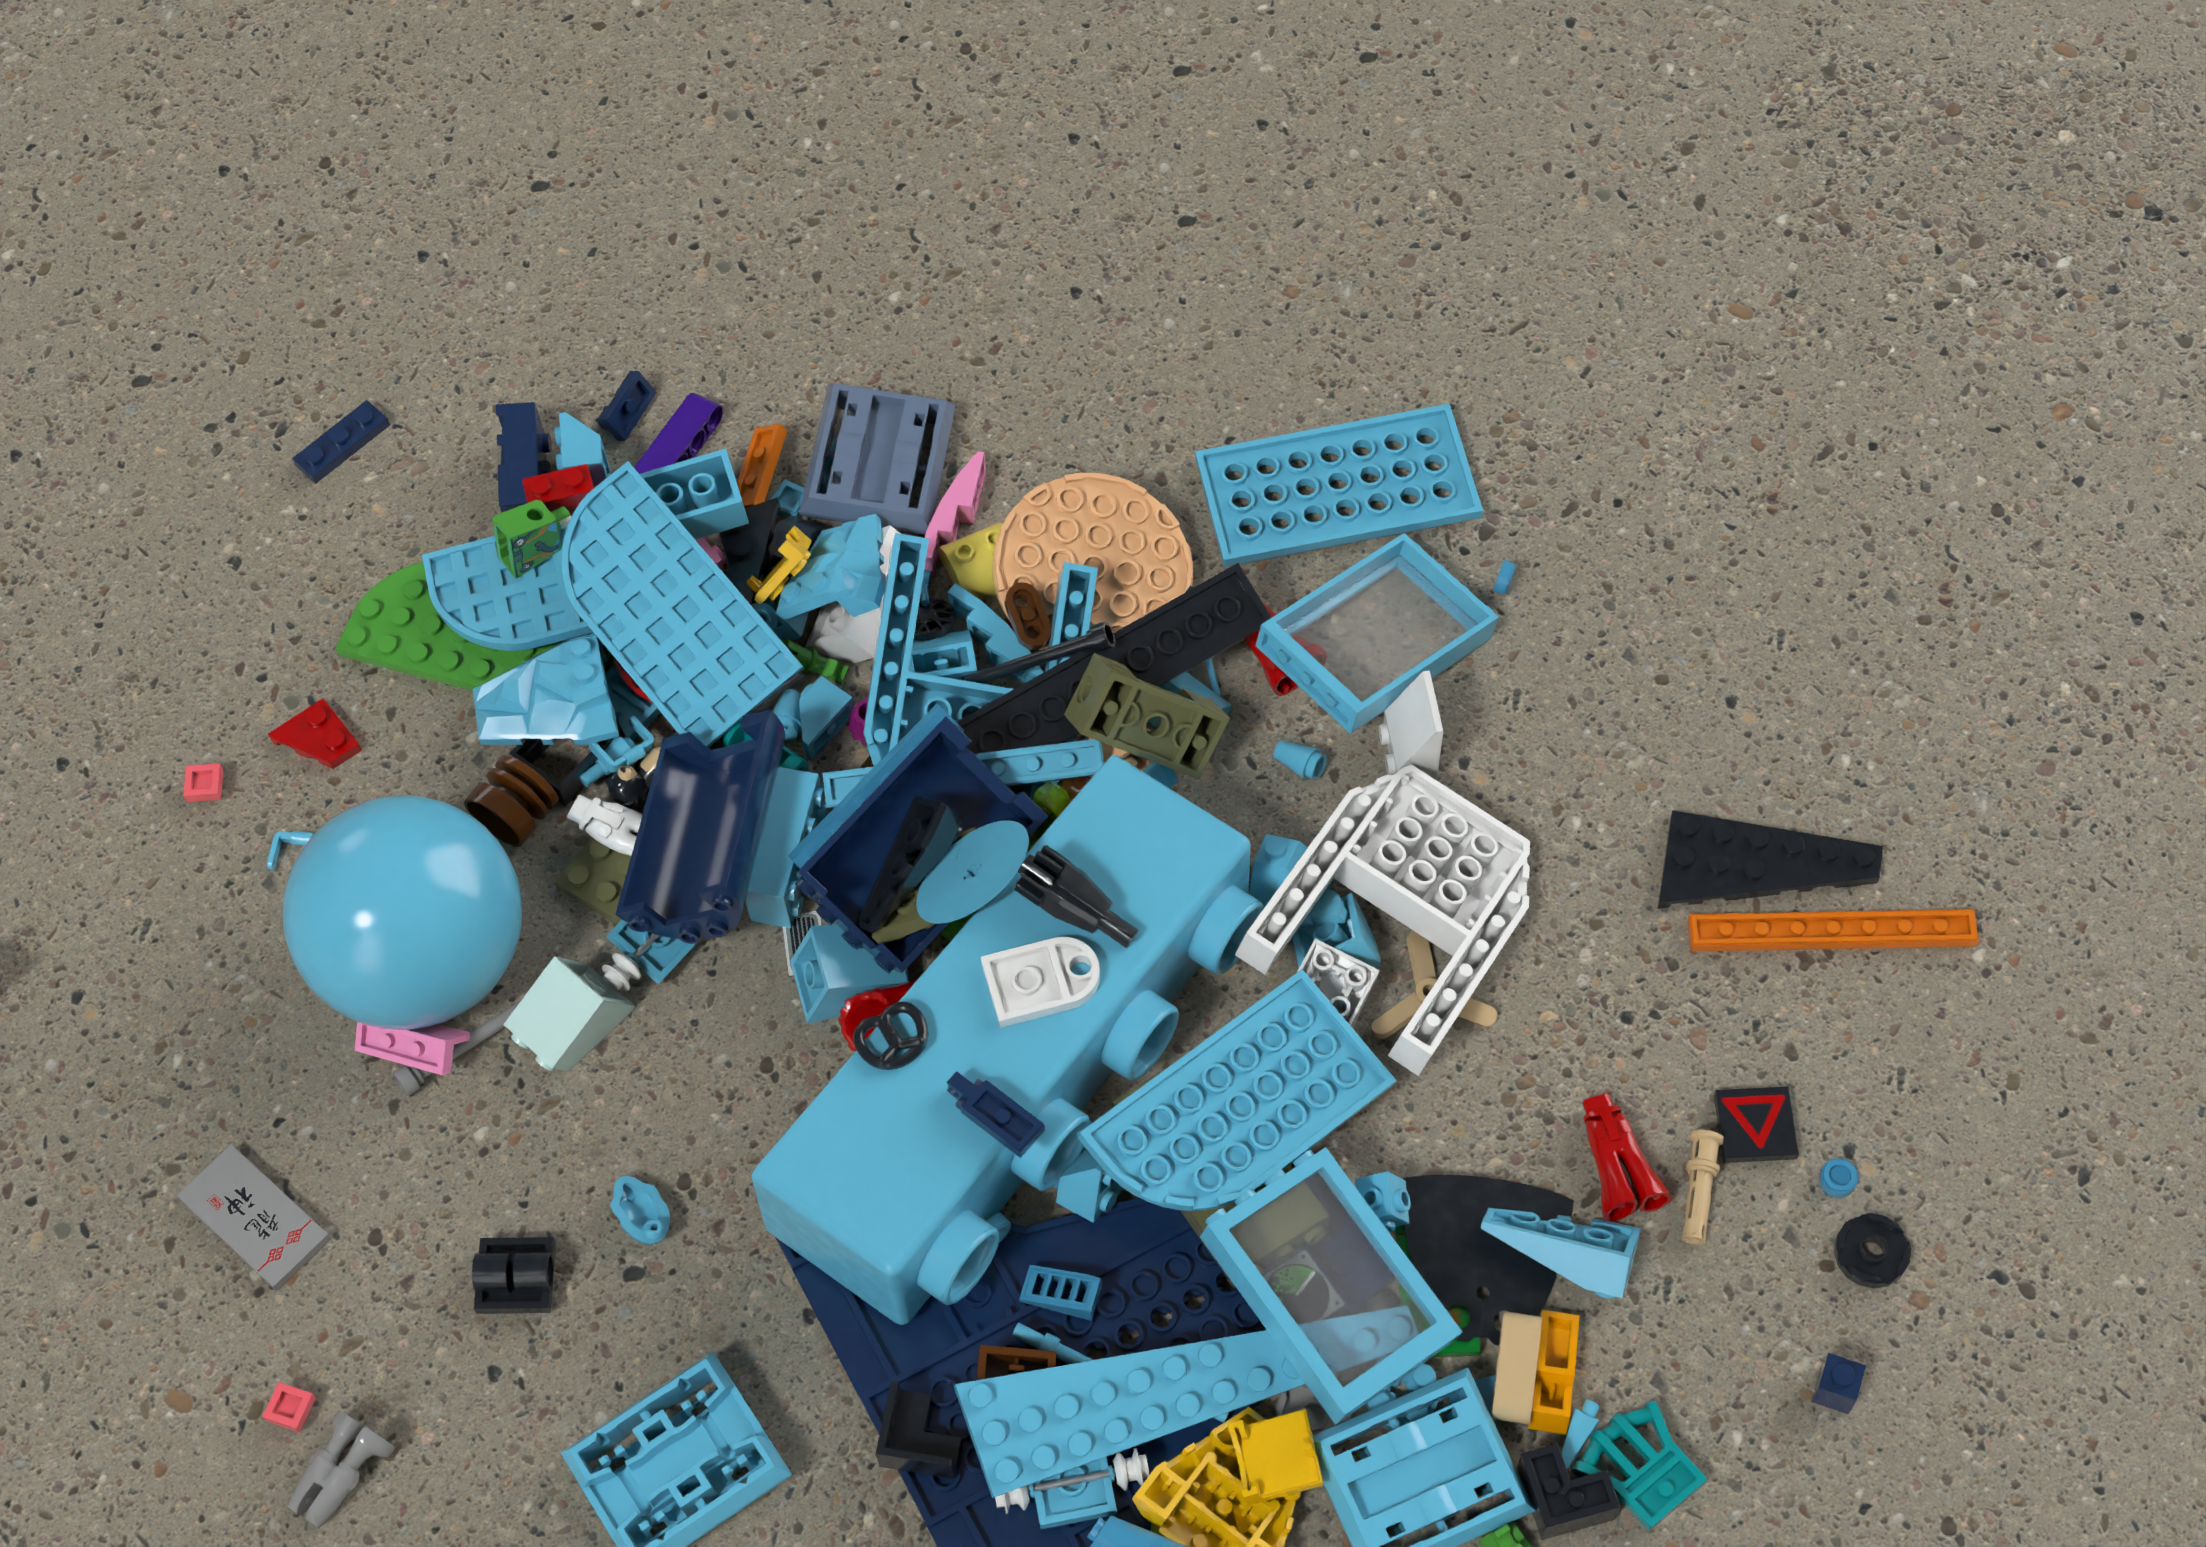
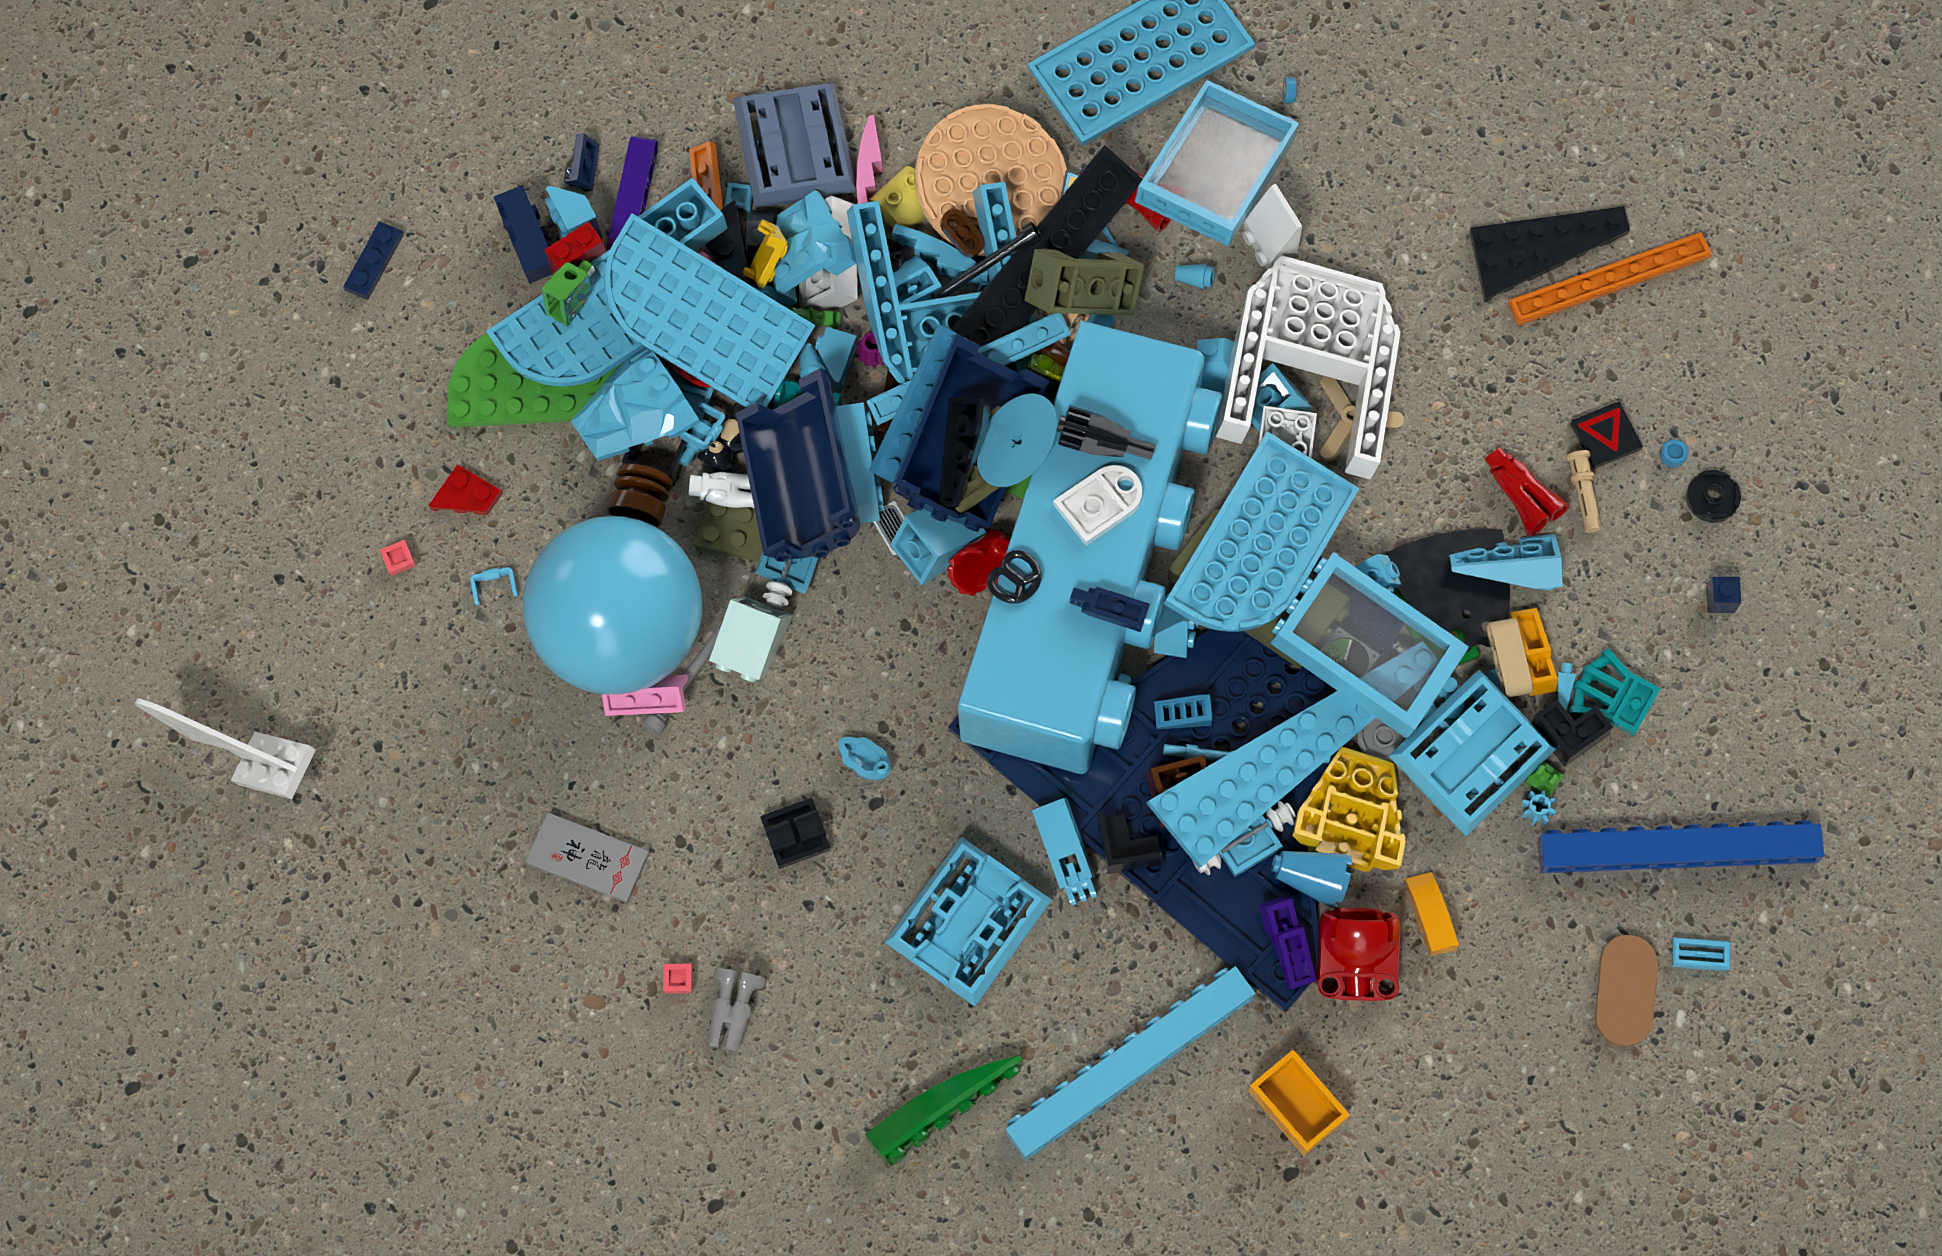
camera: 20 degrees left, 10 degrees up
(838, 1400) = (1060, 841): none -> medium azure hinge
(1276, 1456) = (1376, 773): yellow piece -> none
(1329, 909) = (1266, 380): medium azure tile -> none

